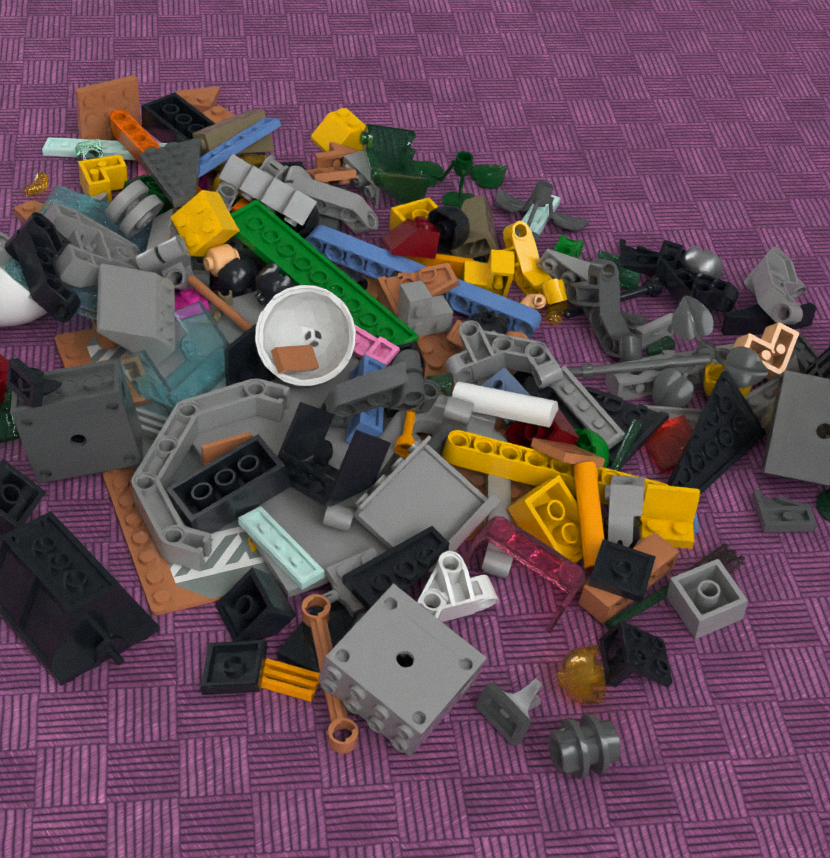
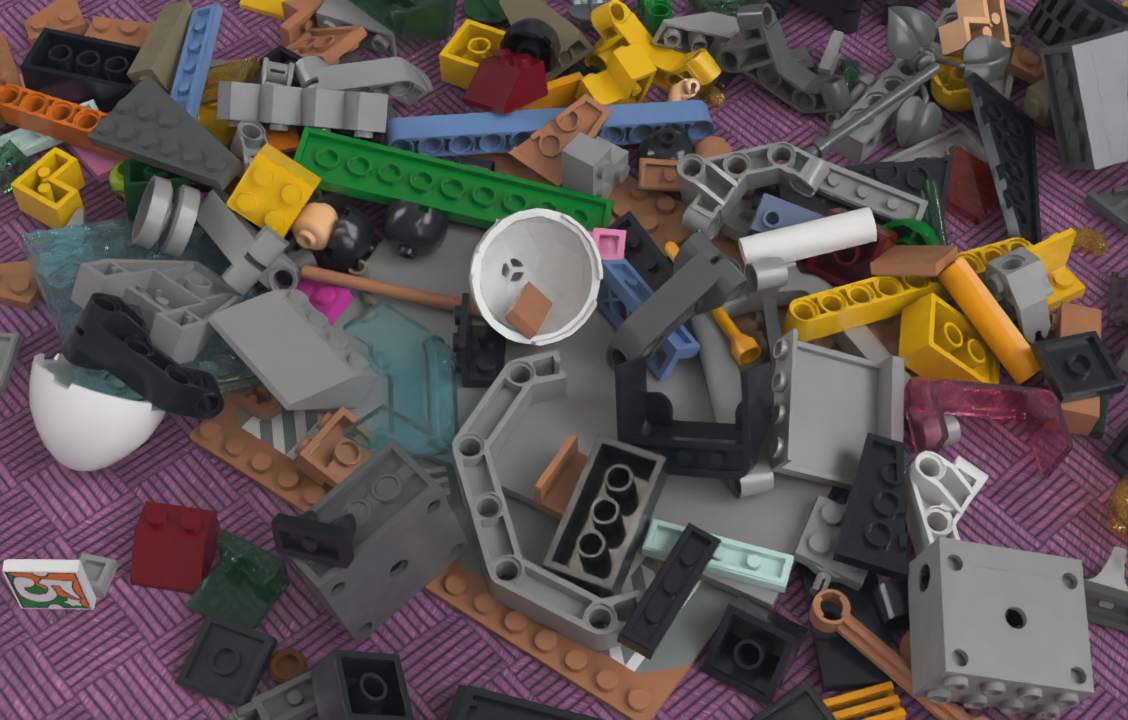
camera: 30 degrees left, 10 degrees up
(226, 542) = (669, 591): none -> black tile
(727, 514) = (1091, 240): none -> clear yellow arm

